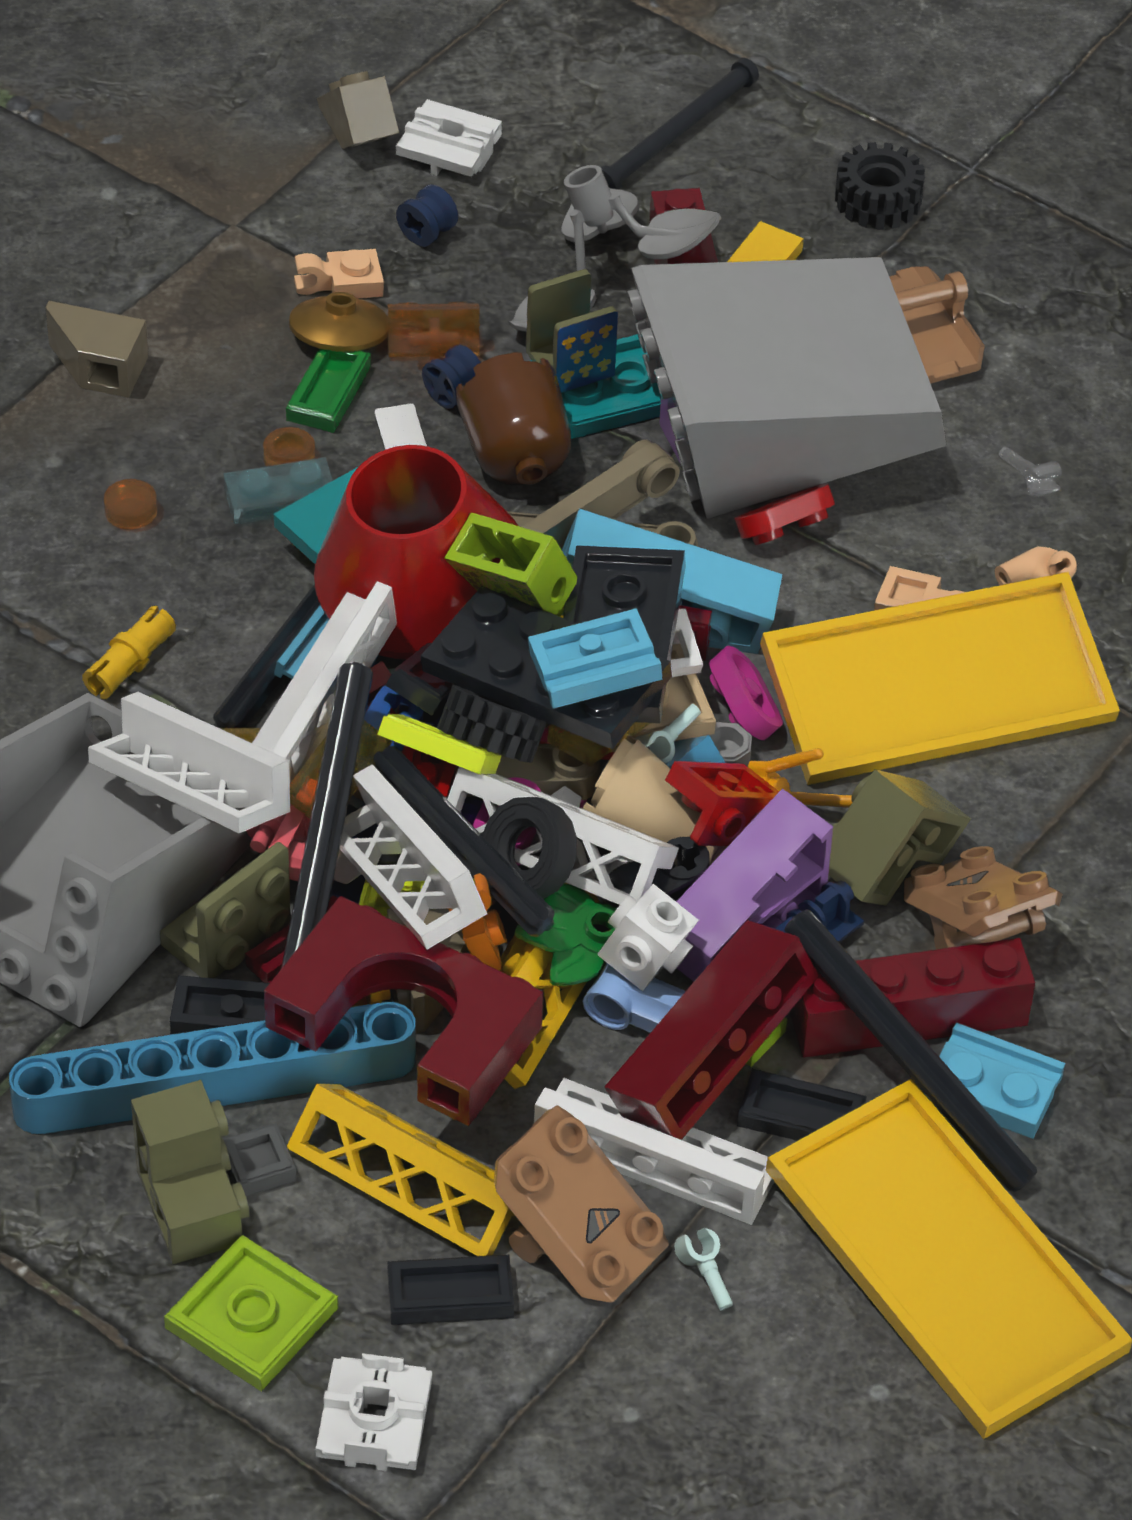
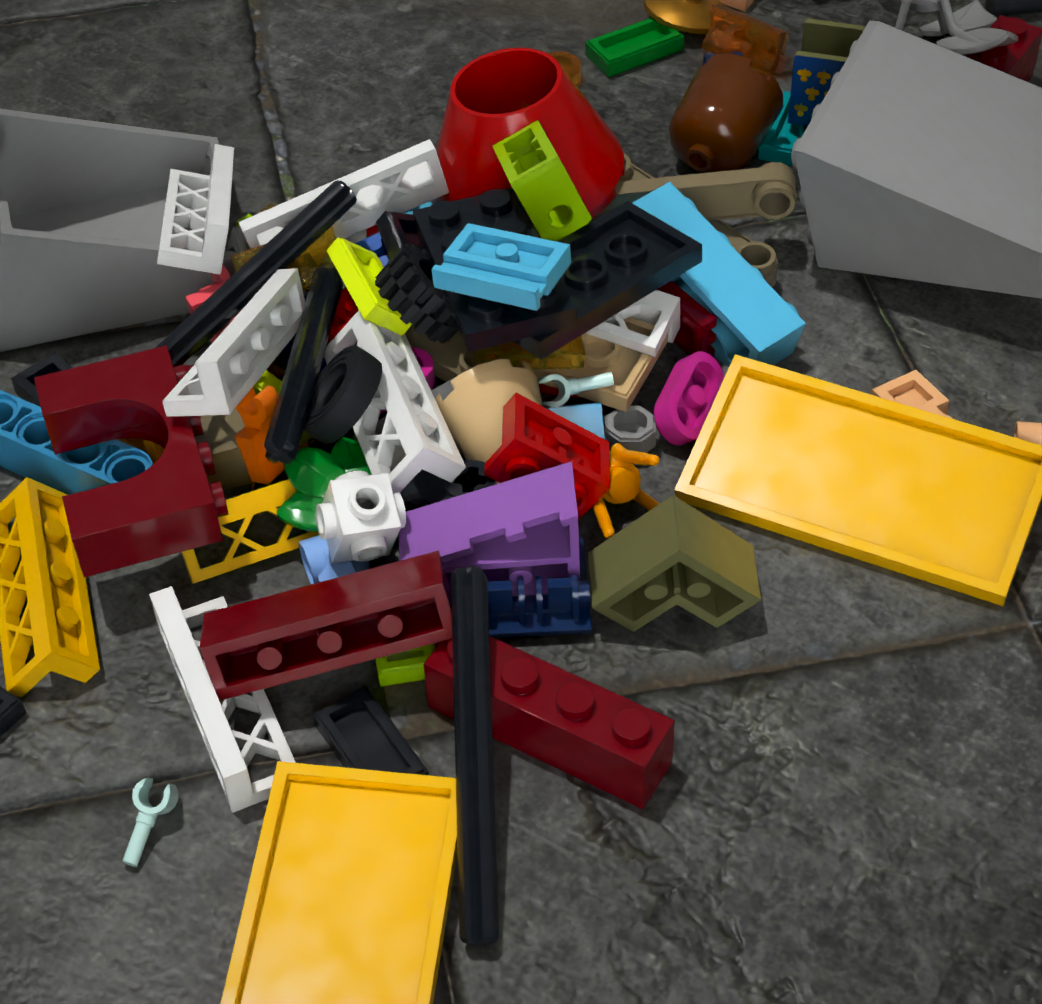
camera: 45 degrees right, 0 degrees up
(129, 652) = (297, 137): yellow pin -> none
(130, 504) = (414, 52): clear orange tile -> none
(233, 916) = (125, 320): olive bracket -> none
(399, 426) = (651, 102): white sticker -> none
(576, 1208) = (90, 694): medium nougat shield -> none
(802, 506) = (896, 292): red plate -> none
(979, 899) = (695, 672): medium nougat shield -> none
(1004, 1077) = (555, 836): medium azure plate -> none

